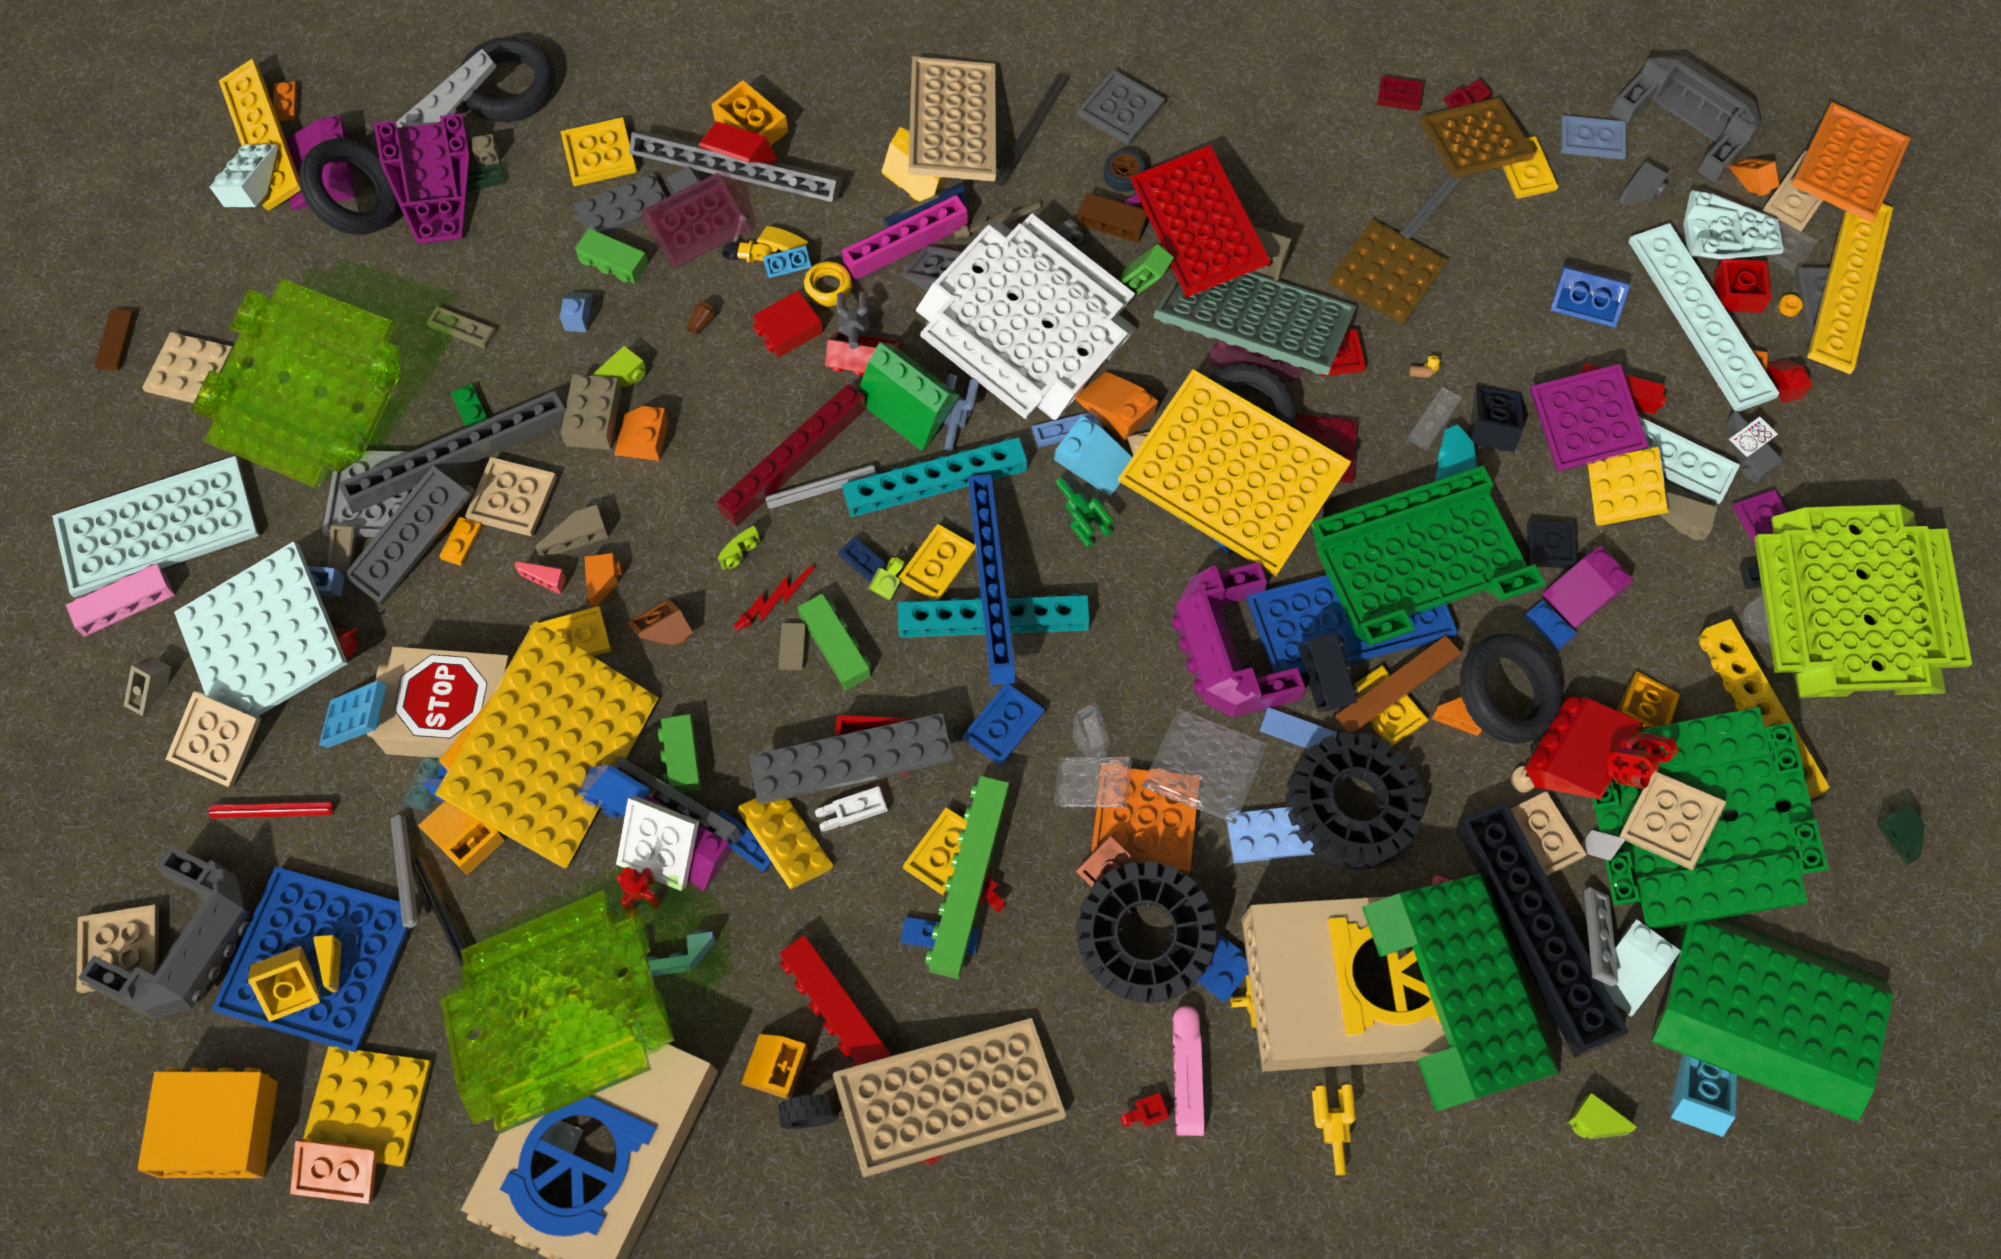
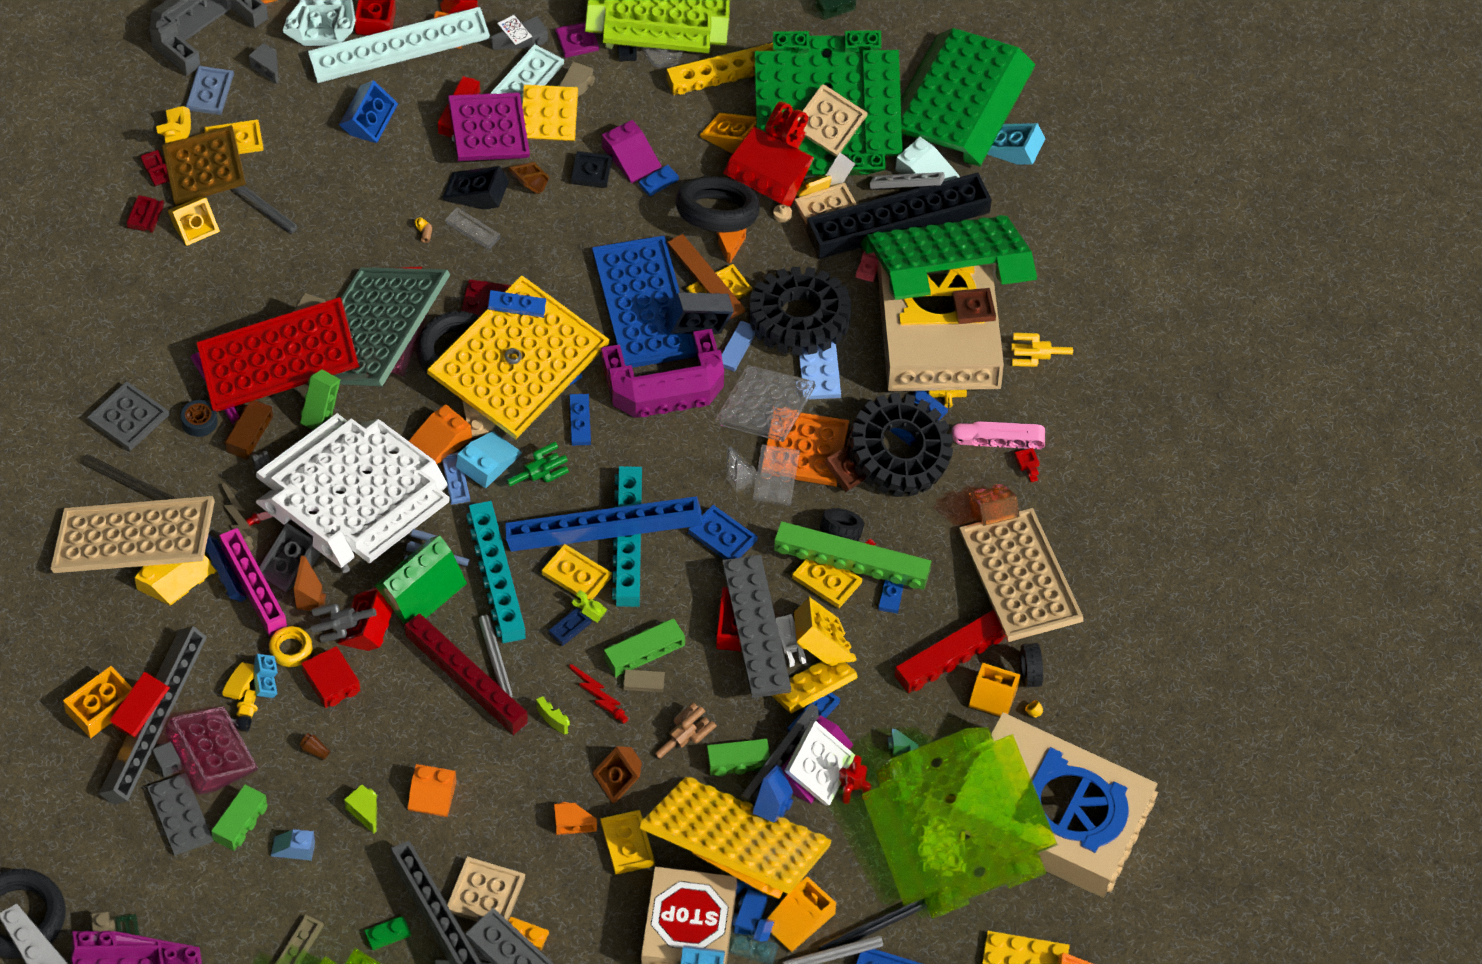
camera: 90 degrees left, 10 degrees down
(545, 576) = (570, 858): coral slope -> none
(576, 531) = (525, 839): dark tan slope -> none
(591, 412) = (405, 822): dark tan brick -> none
(598, 151) = (115, 833): yellow plate -> none
(718, 694) = (686, 729): none -> medium nougat plant
(752, 1120) = (1034, 709): none -> yellow hinge
(851, 842) = (821, 633): none -> yellow wedge
(900, 287) = (308, 588): none -> dark orange slope
(1037, 863) = (842, 523): none -> black tyre
(1060, 1059) = (993, 505): none -> clear orange brick
(1163, 555) = (580, 419): none -> blue plate
(1227, 468) = (514, 351): none -> dark grey piece
(1304, 458) = (517, 304): none -> blue plate
(1366, 1016) = (974, 305): none -> copper plate
(1387, 271) = (326, 244): pearl gold plate -> none
(1396, 137) = (194, 220): none -> yellow slope
(1420, 554) = (603, 245): green slope -> none
(1455, 453) = (514, 218): teal panel -> none
(1525, 108) = (177, 125): none -> yellow arch
(1525, 474) = (530, 176): none -> reddish brown slope
(1575, 813) = (814, 185): none -> yellow slope
(1599, 1120) = (1033, 204): lime slope -> none

